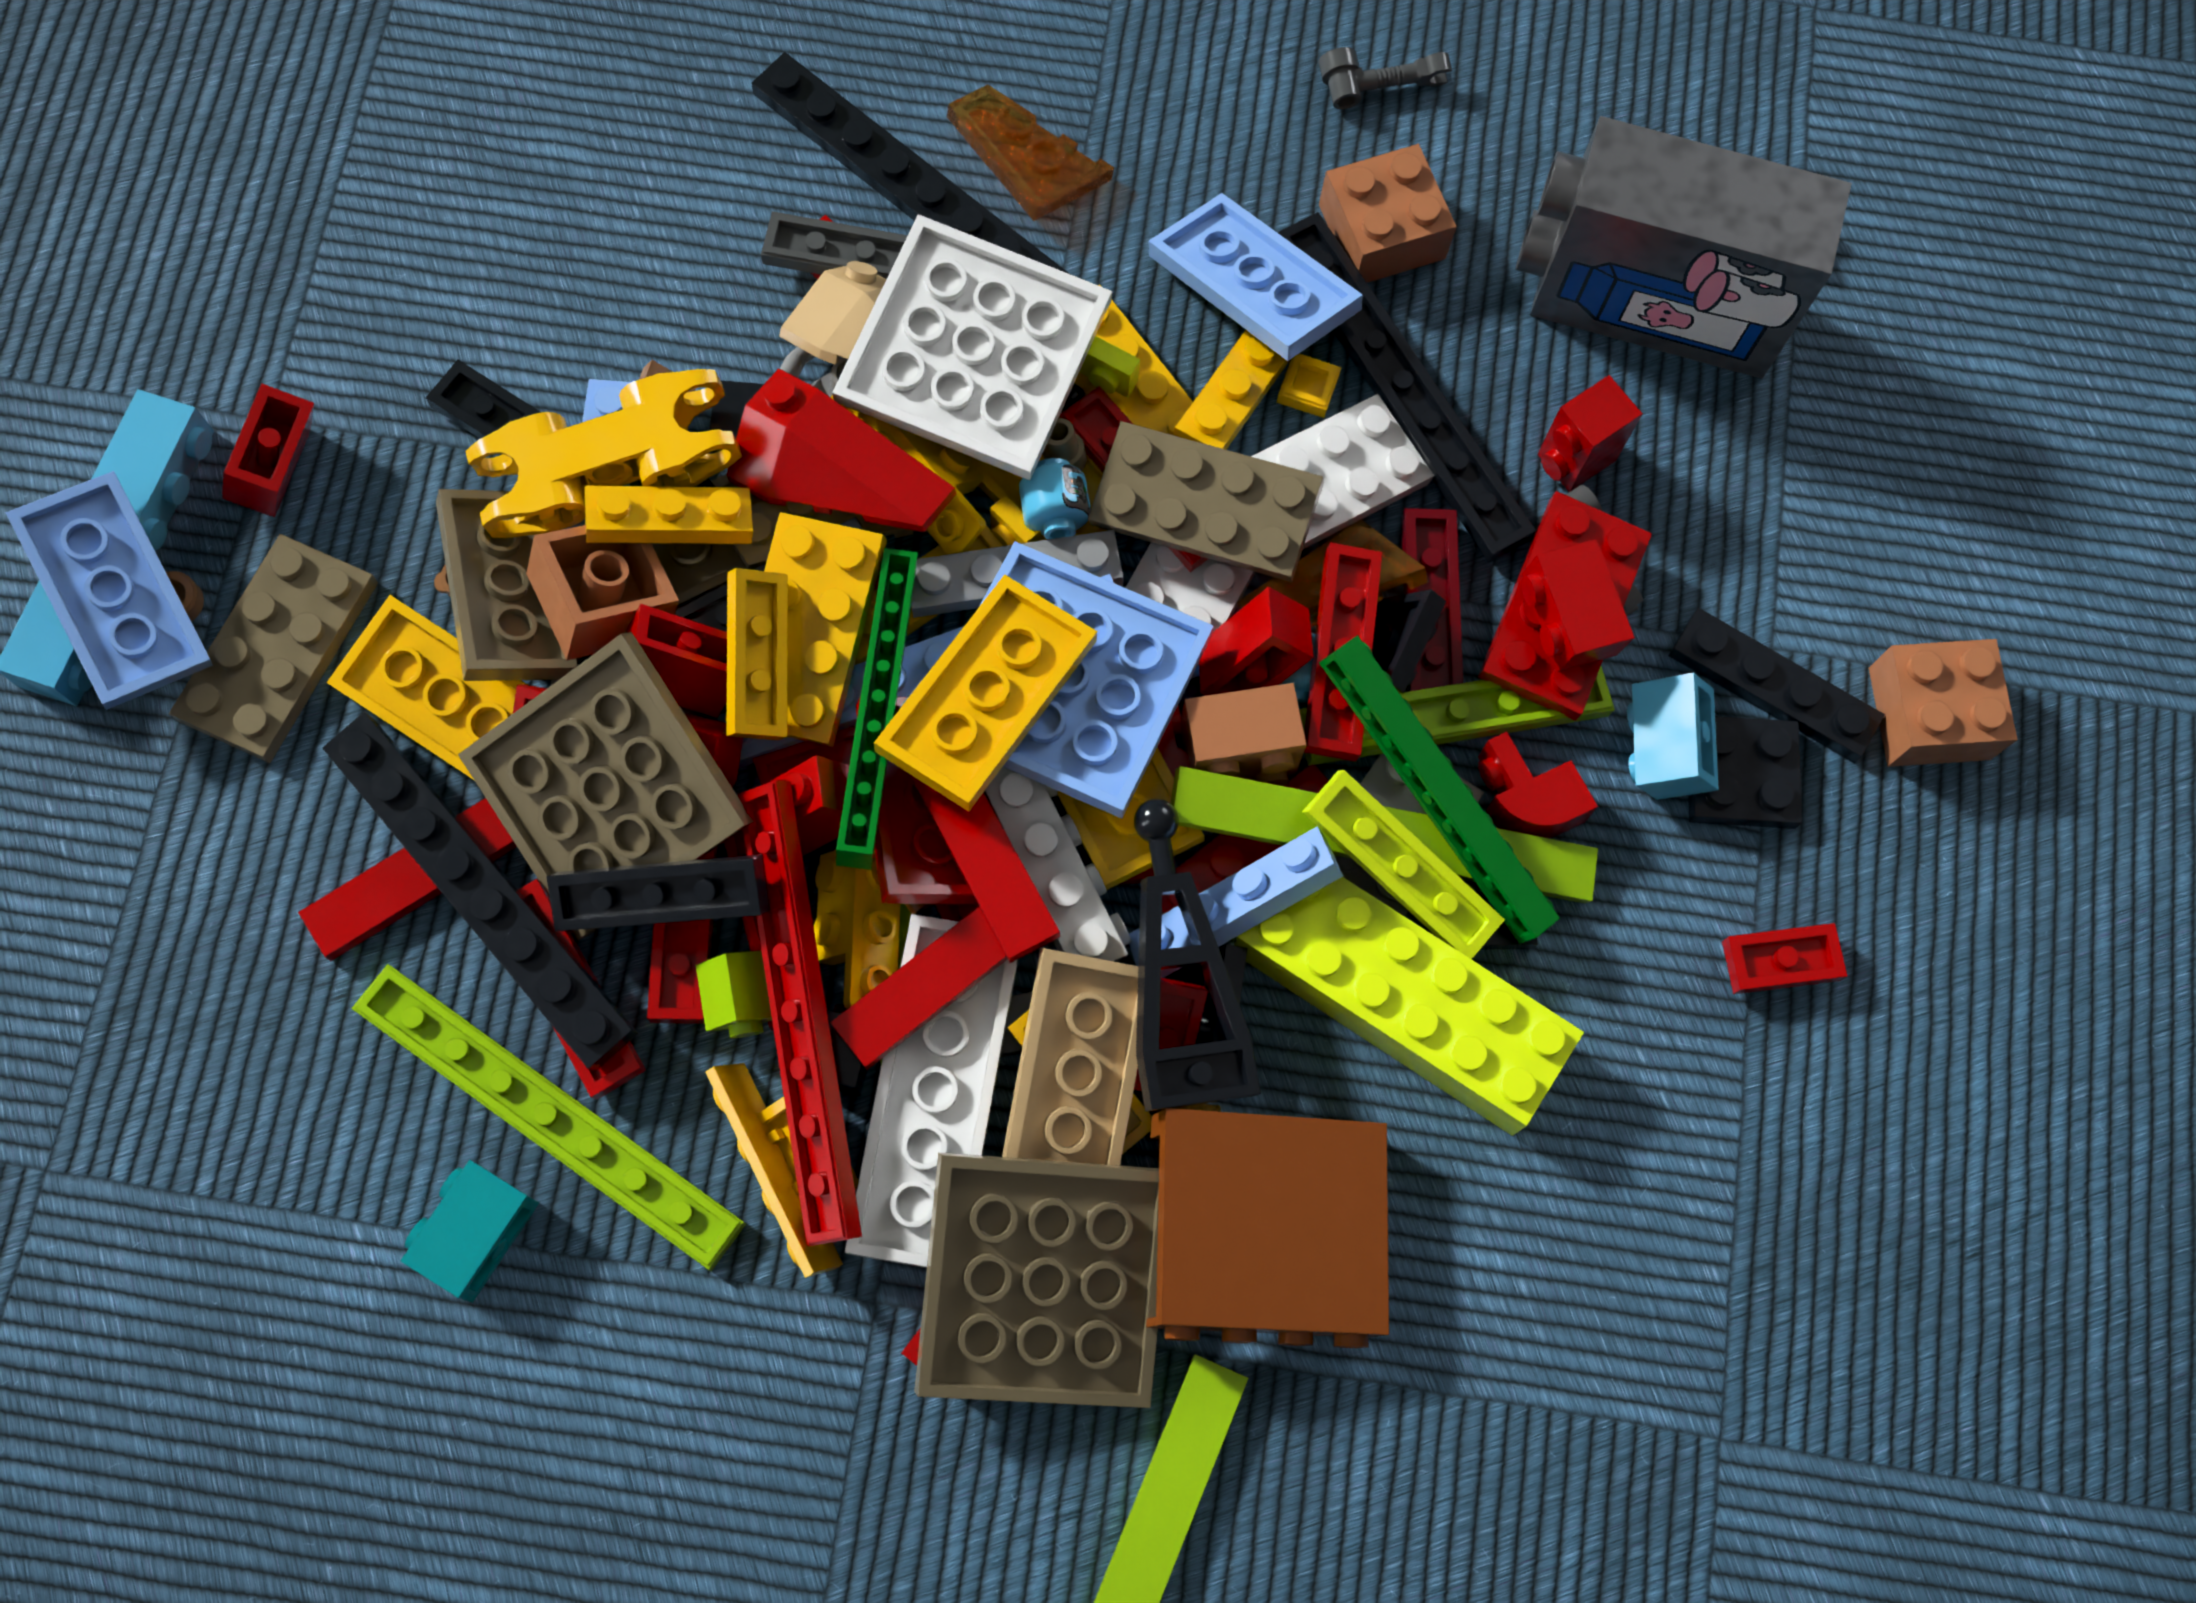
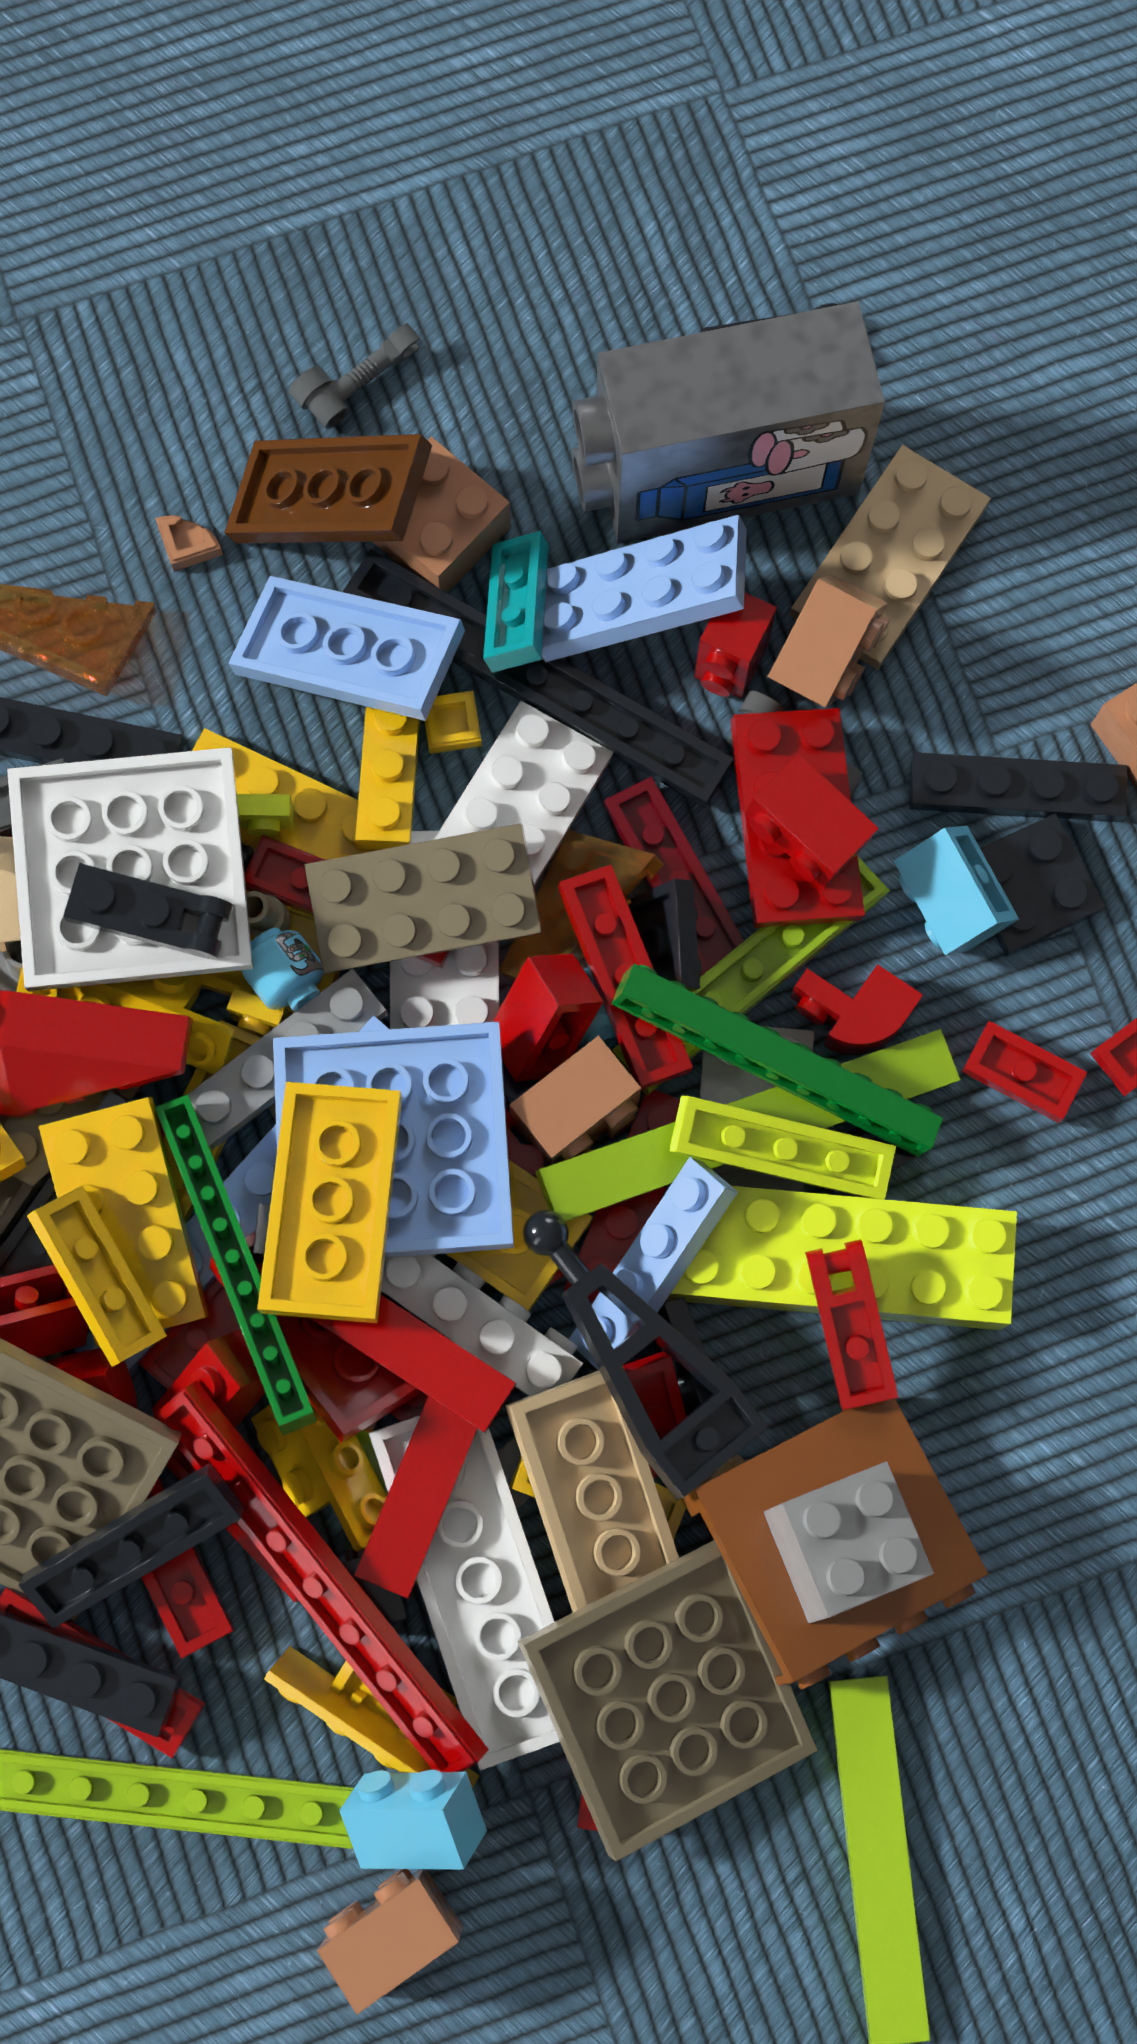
camera: 25 degrees left, 5 degrees up
(468, 1230) = (131, 1939): teal brick -> none
(685, 1350) = (390, 1938): none -> nougat brick
(734, 993) = (249, 1593): lime brick -> none
(763, 1261) = (413, 1820): none -> medium azure brick
(967, 382) = (146, 911): none -> black plate
(1168, 136) = (187, 542): none -> nougat tile
(1277, 1227) = (848, 1542): none -> light grey brick
(1310, 142) = (329, 489): none -> reddish brown plate
(1382, 1048) = (852, 1327): none -> red plate
(1417, 310) = (516, 602): none -> teal plate
(1534, 348) = (645, 588): none -> light blue plate
(1653, 924) = (1024, 1072): none -> red plate
(1674, 469) = (829, 640): none -> nougat brick
(1762, 440) = (902, 541): none -> tan plate

